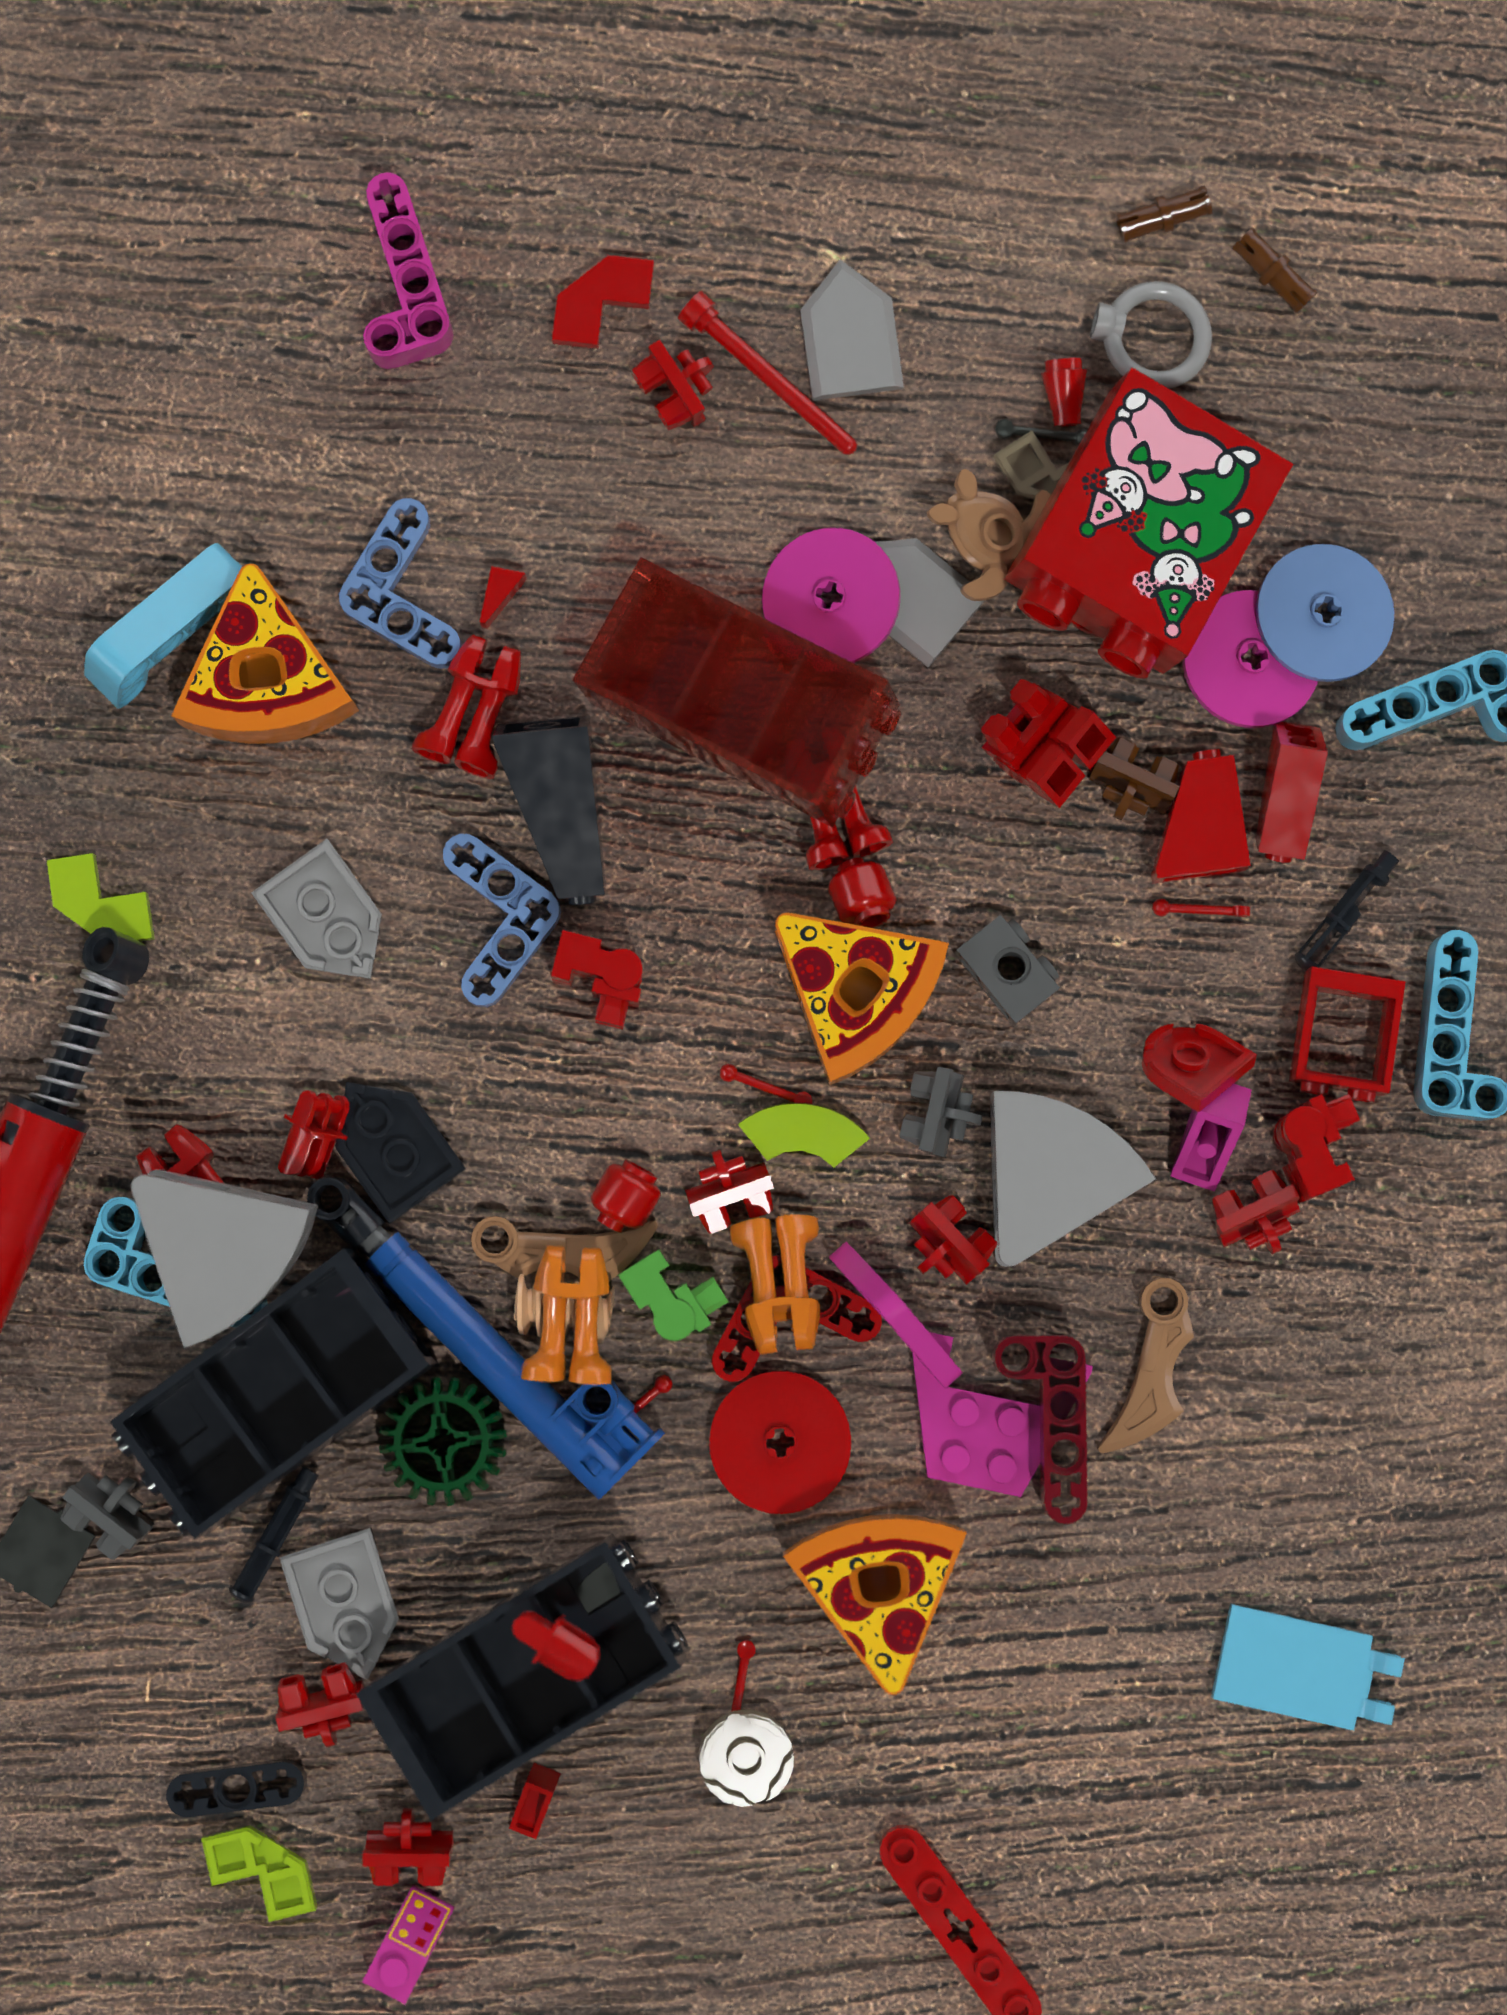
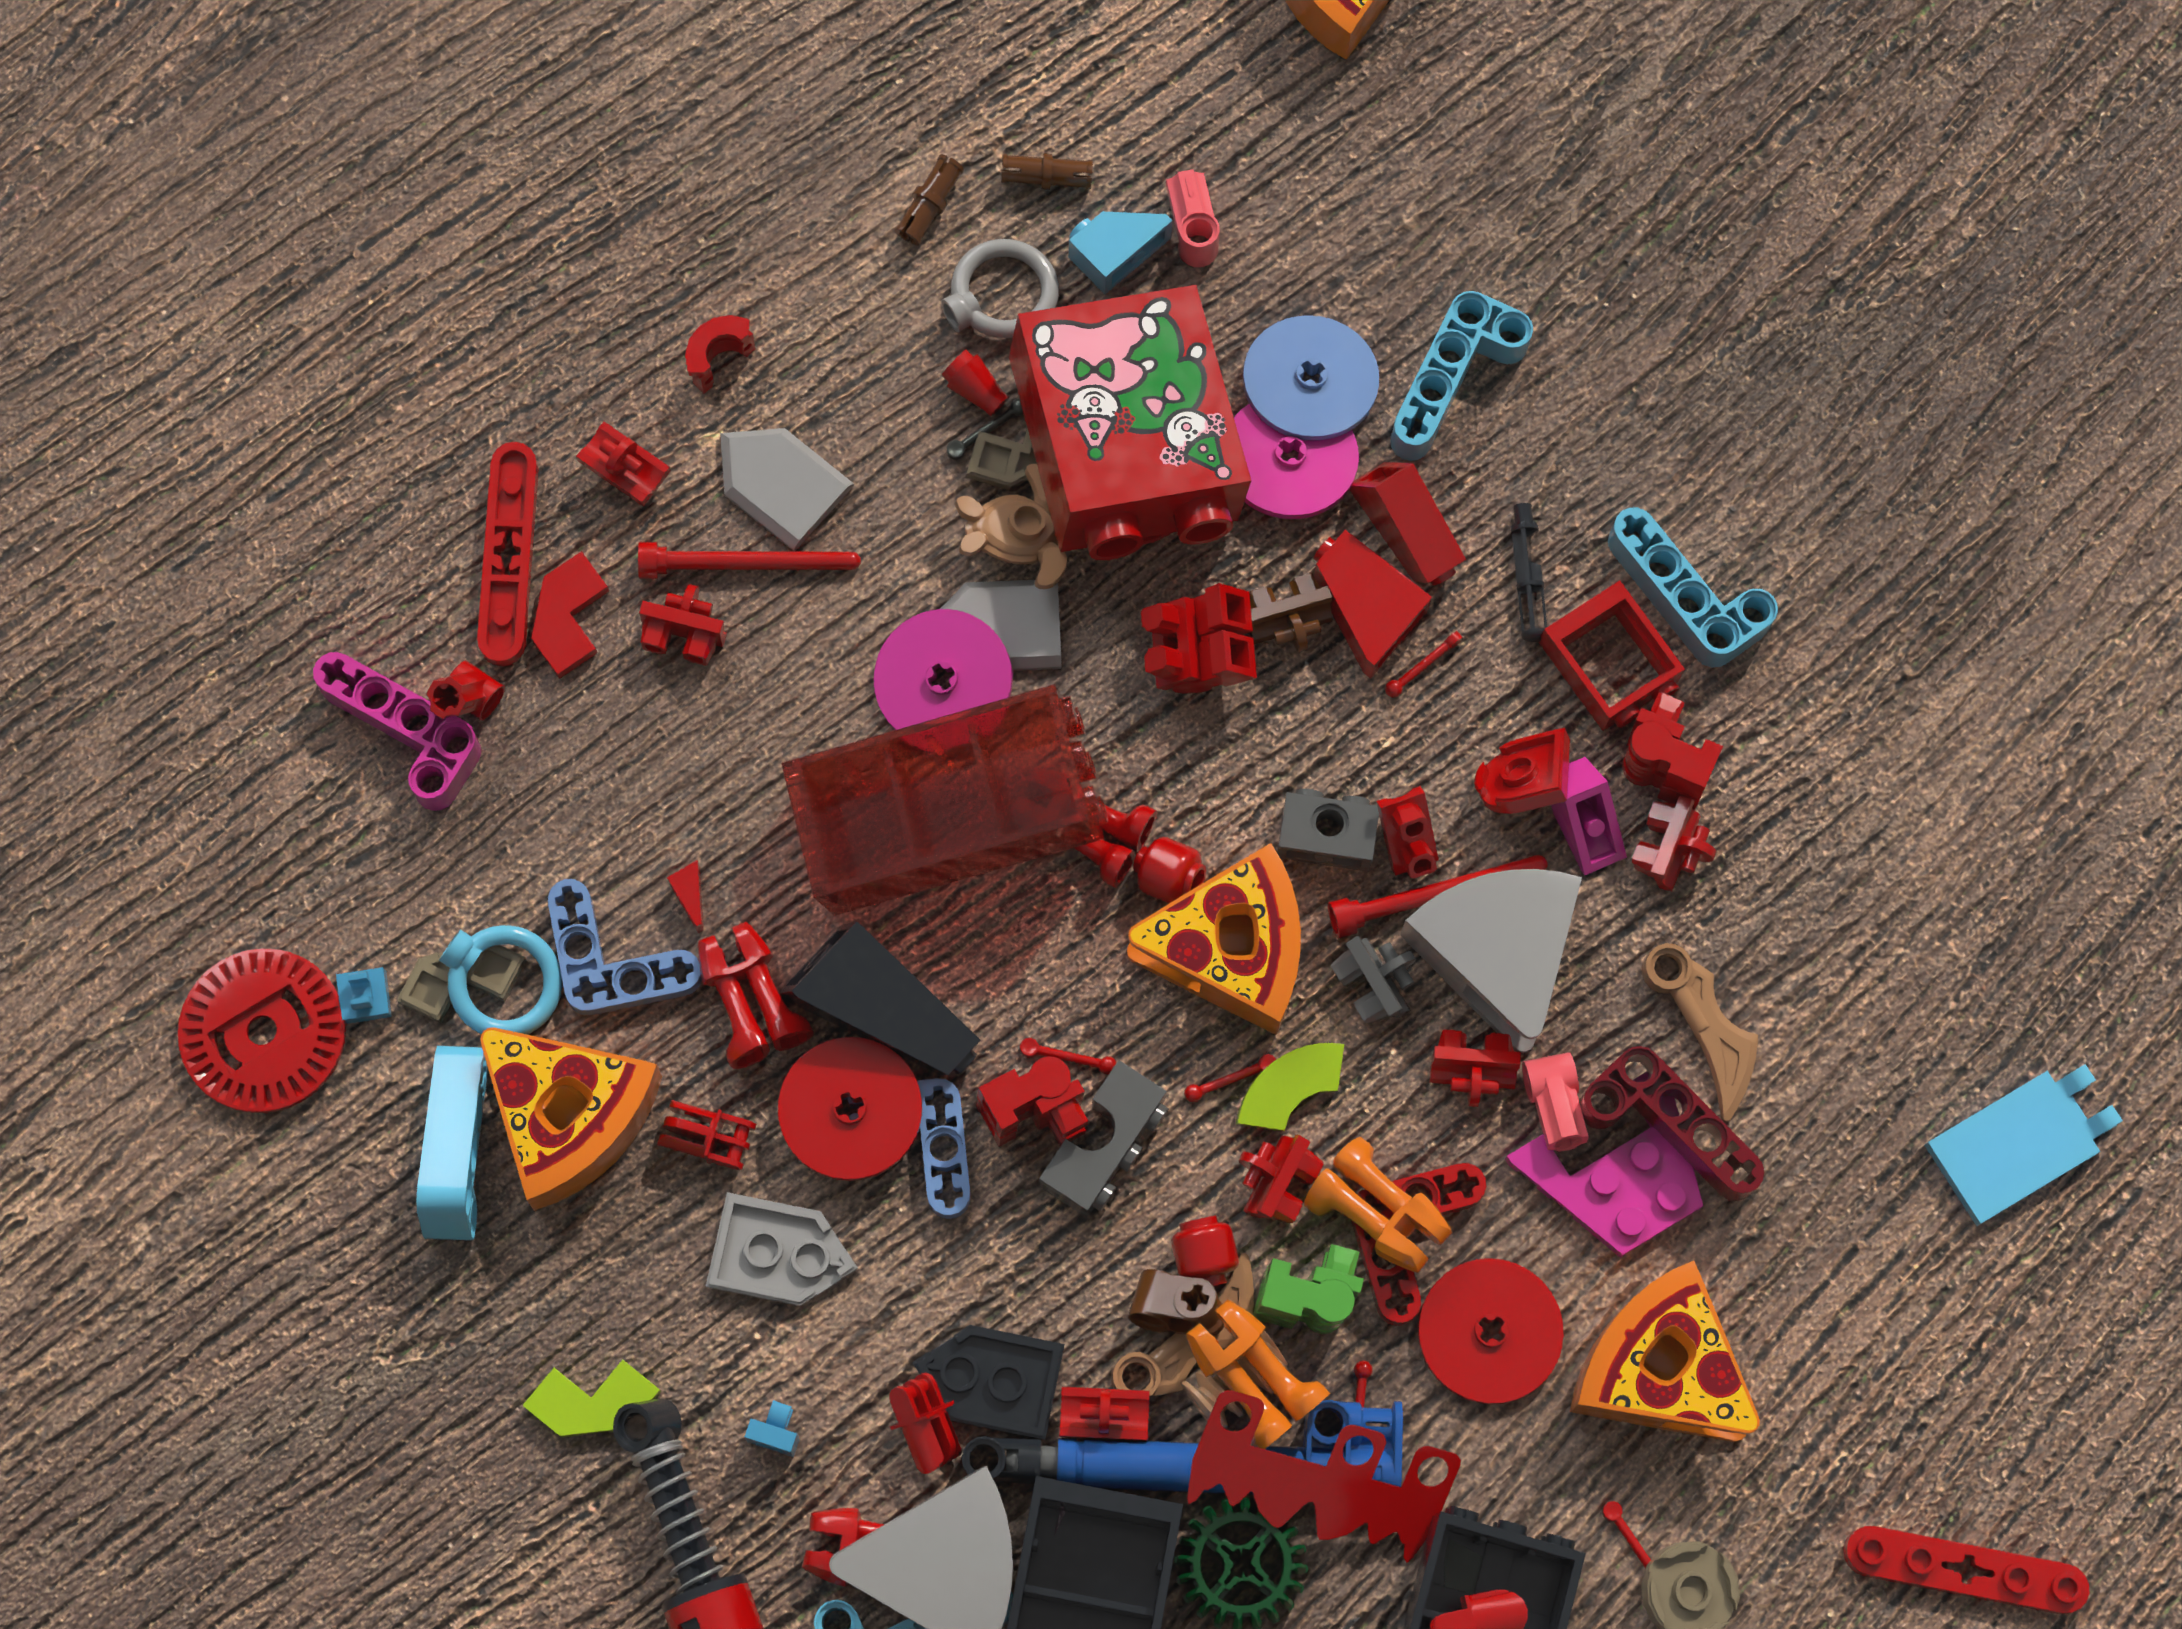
camera: 50 degrees left, 10 degrees down
(102, 375) = (227, 1003): none -> red piece
(201, 457) = (364, 995): none -> dark azure tile
(202, 1042) = (774, 1433): none -> dark azure tile
(267, 492) = (427, 985): none -> dark tan tile
(292, 491) = (463, 953): none -> medium azure piece
(351, 786) = (709, 1135): none -> red arm
(444, 1245) = (1104, 1413): none -> red hips
(449, 825) = (815, 1093): none -> red piece
(467, 292) = (465, 692): none -> red piece
(554, 1456) = (1340, 1491): none -> red piece
(566, 1212) = (1174, 1303): none -> reddish brown piece
(629, 180) = (506, 597): none -> red piece
(642, 931) = (1030, 1048): none -> red hinge
(670, 1044) = (1084, 1176): none -> dark grey arch
(743, 220) = (623, 463): none -> red hips
(896, 1314) = (1488, 1144): dark pink beam -> none
(897, 180) = (711, 339): none -> red piece
(966, 1049) = (1350, 915): none -> red piece
(991, 1313) = (1554, 1087): none -> coral piece
(1063, 1028) = (1408, 833): none -> red hips
(1273, 376) = (1116, 244): none -> medium azure slope
(1353, 406) = (1193, 217): none -> coral piece

